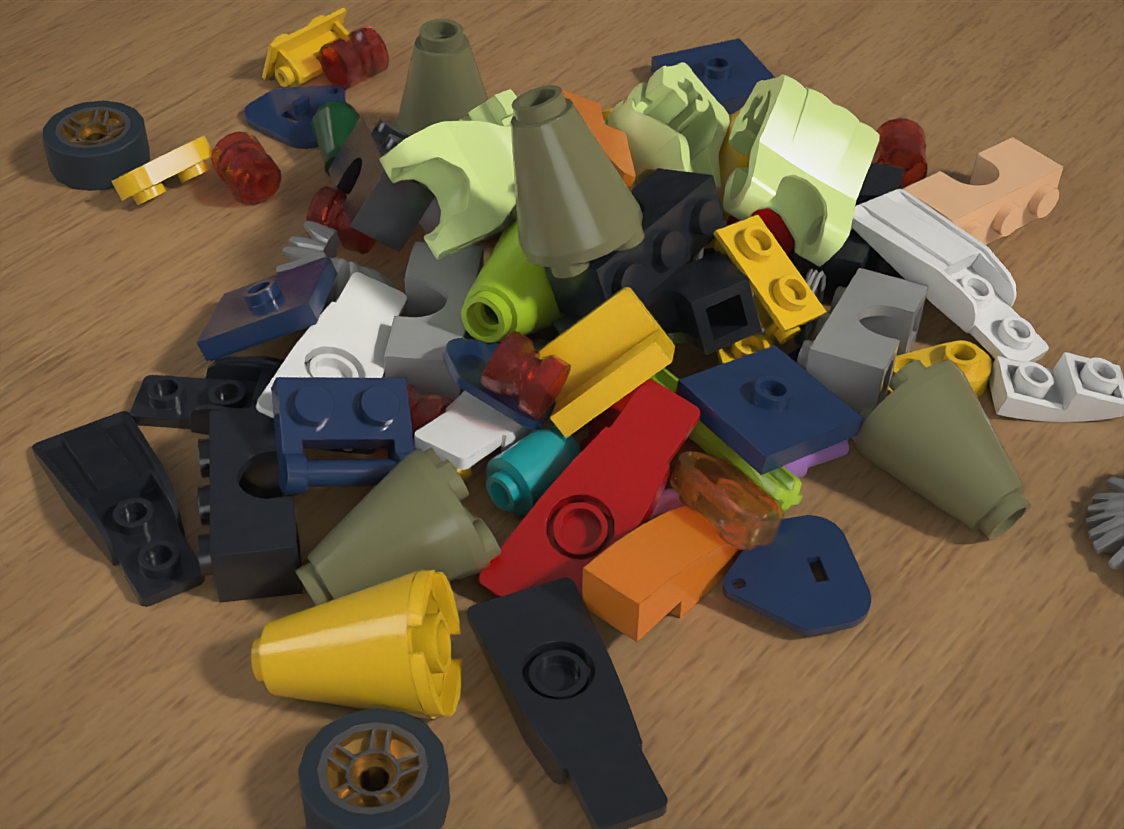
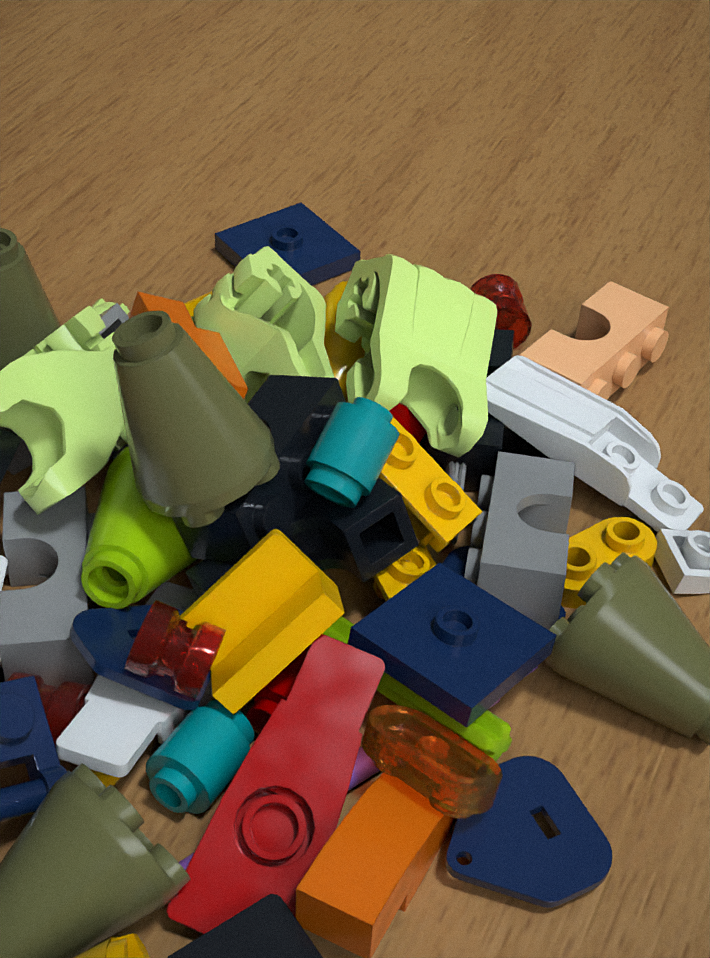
camera: 15 degrees left, 0 degrees up
(710, 236) = (351, 451): none -> teal brick

